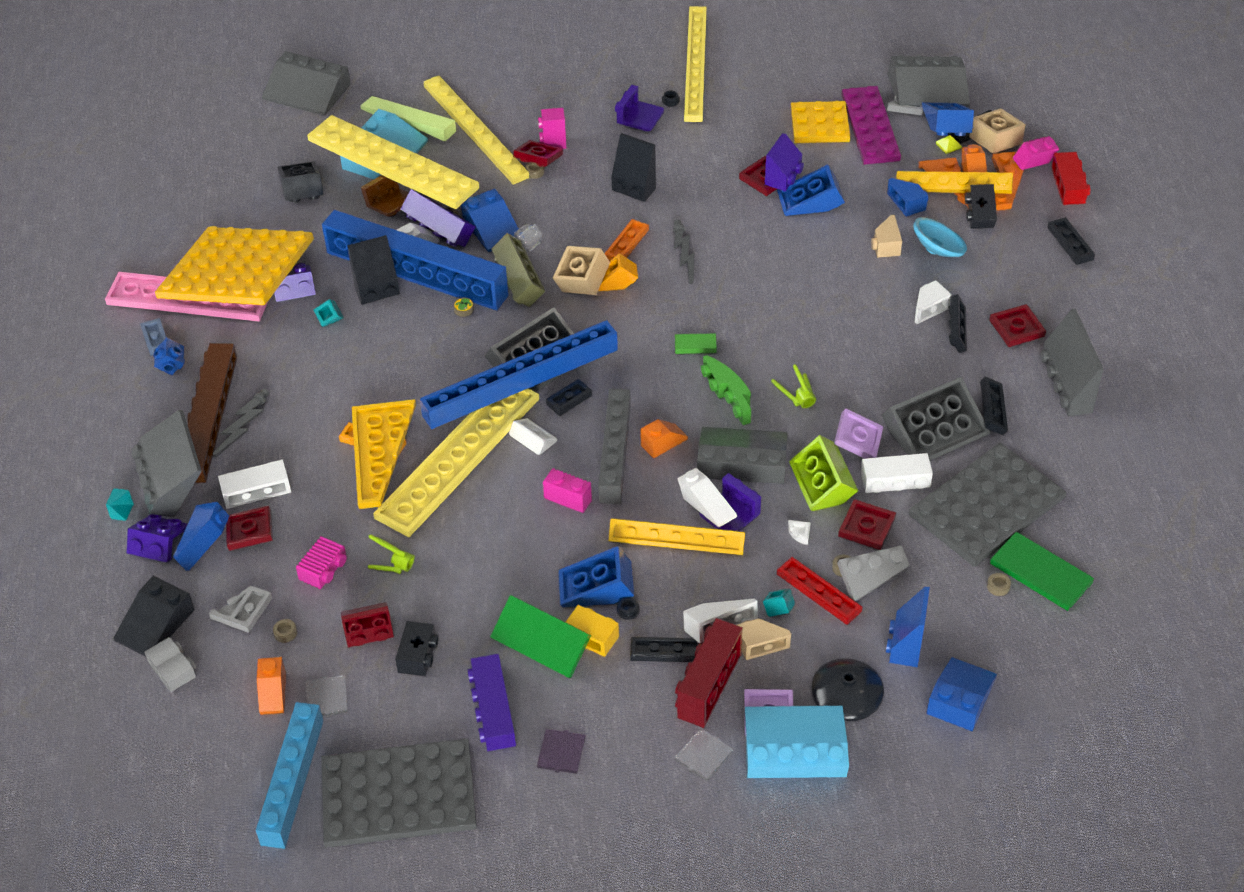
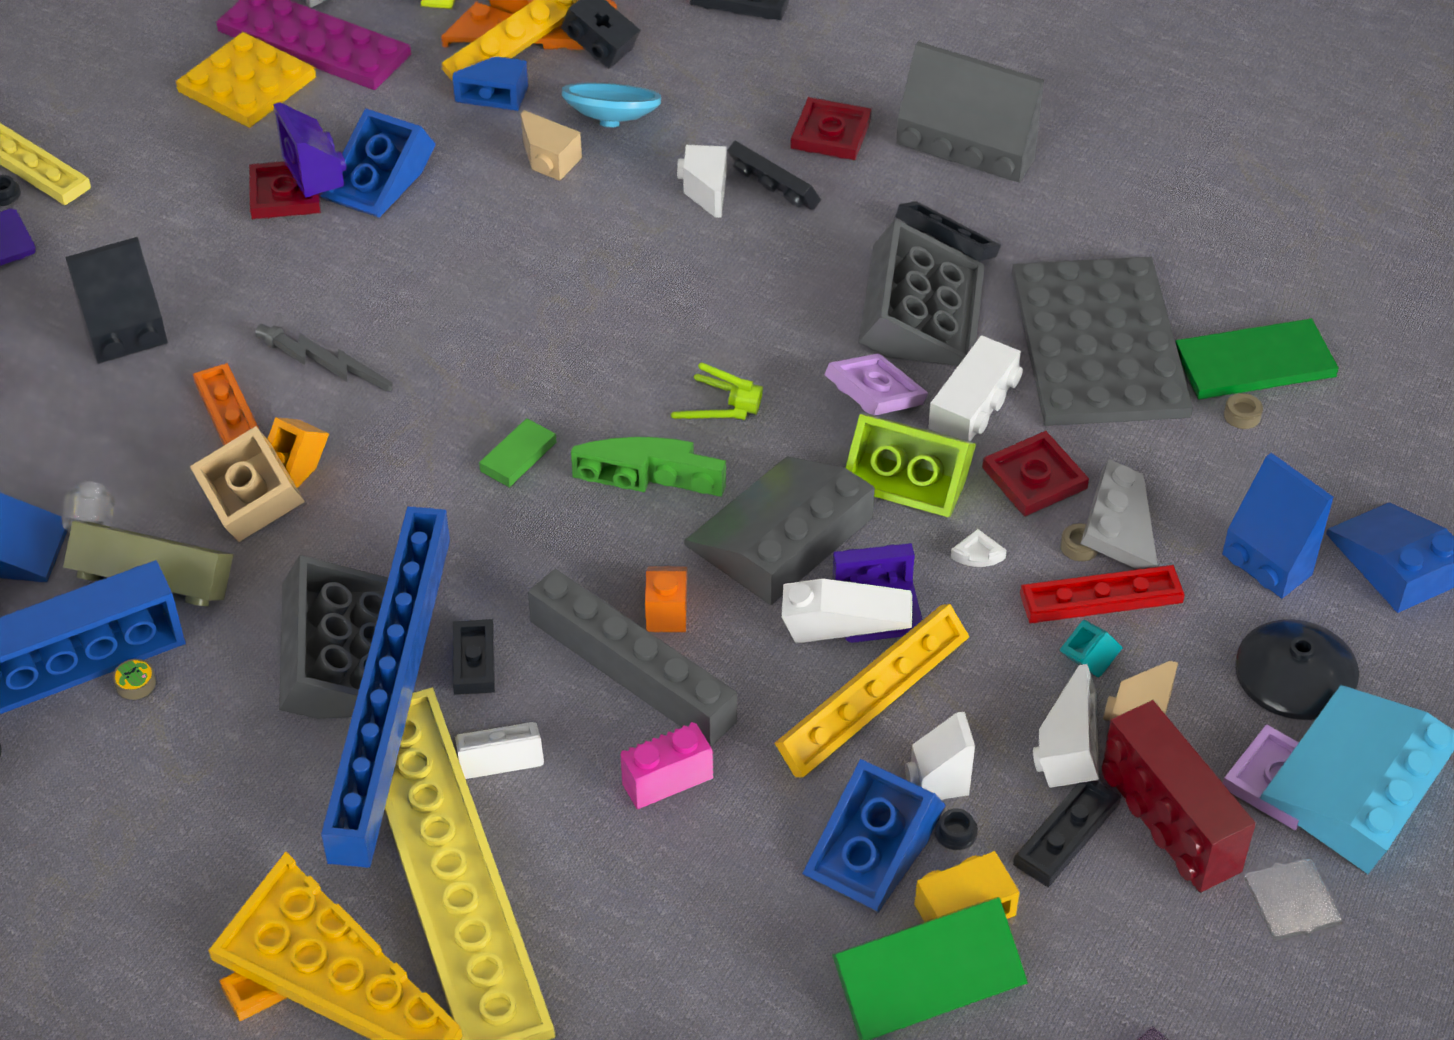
camera: 55 degrees left, 0 degrees up
(654, 581) = (944, 759): none -> white slope

